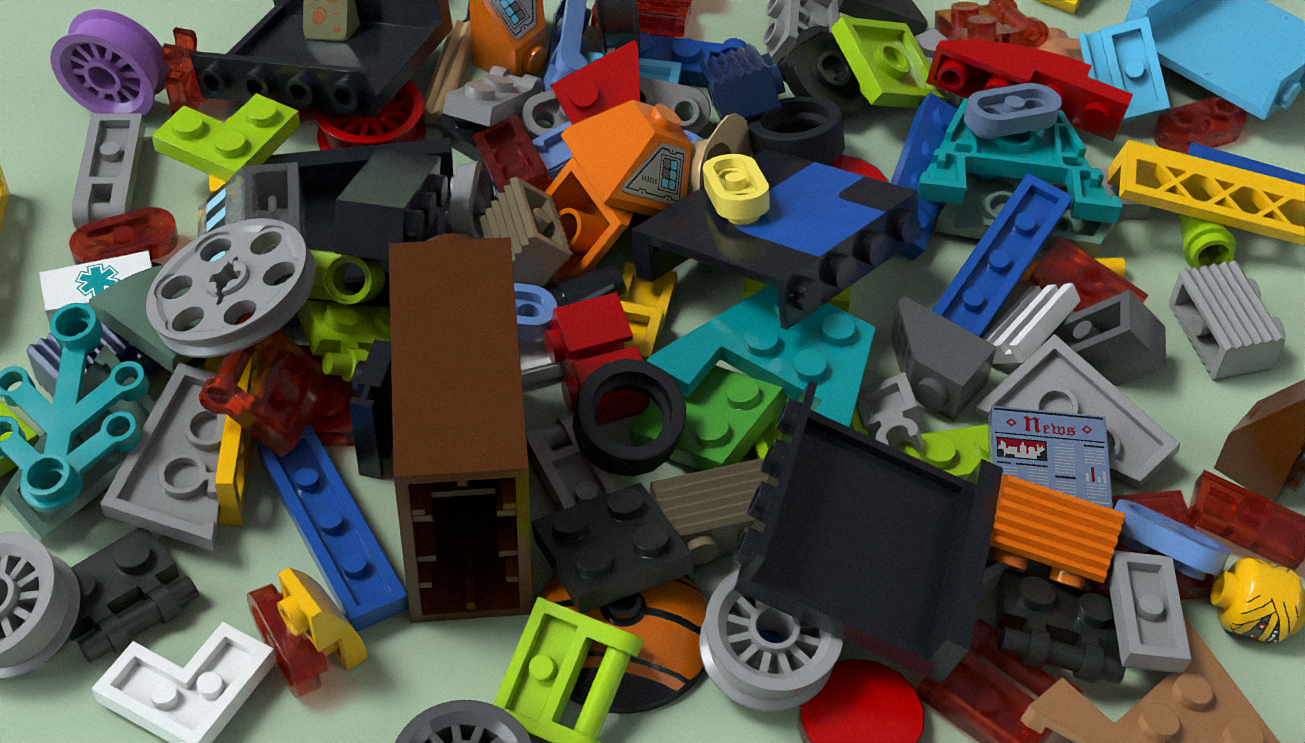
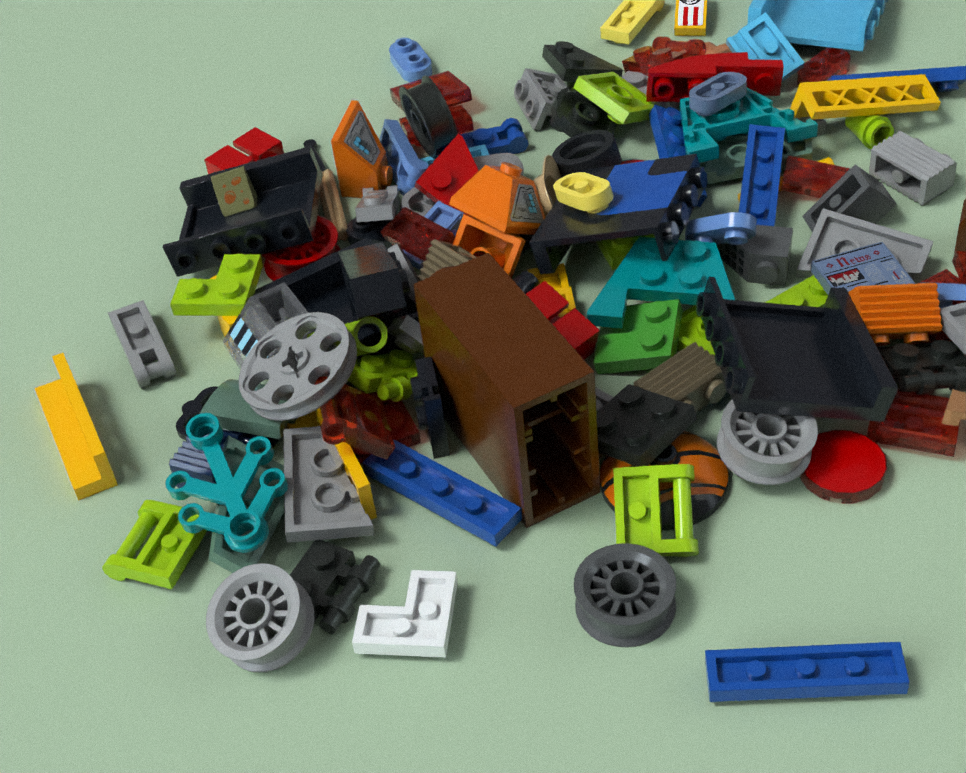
camera: 15 degrees left, 5 degrees down
(86, 280) = (169, 421): white tile -> none
(109, 63) = (106, 274): medium lavender wheel -> none
(126, 234) = (182, 380): clear red plate -> none
(181, 80) = (159, 265): clear red plate -> none
(295, 656) = (474, 571): clear red plate -> none
(312, 611) = (481, 539): yellow slope -> none
(632, 376) = (612, 327): black tyre -> none
(743, 83) = (536, 139): dark blue brick -> none
(891, 412) = (753, 287): light grey plate -> none
(898, 314) = (722, 228): none -> medium blue plate
(1031, 322) = (800, 209): white tile -> none

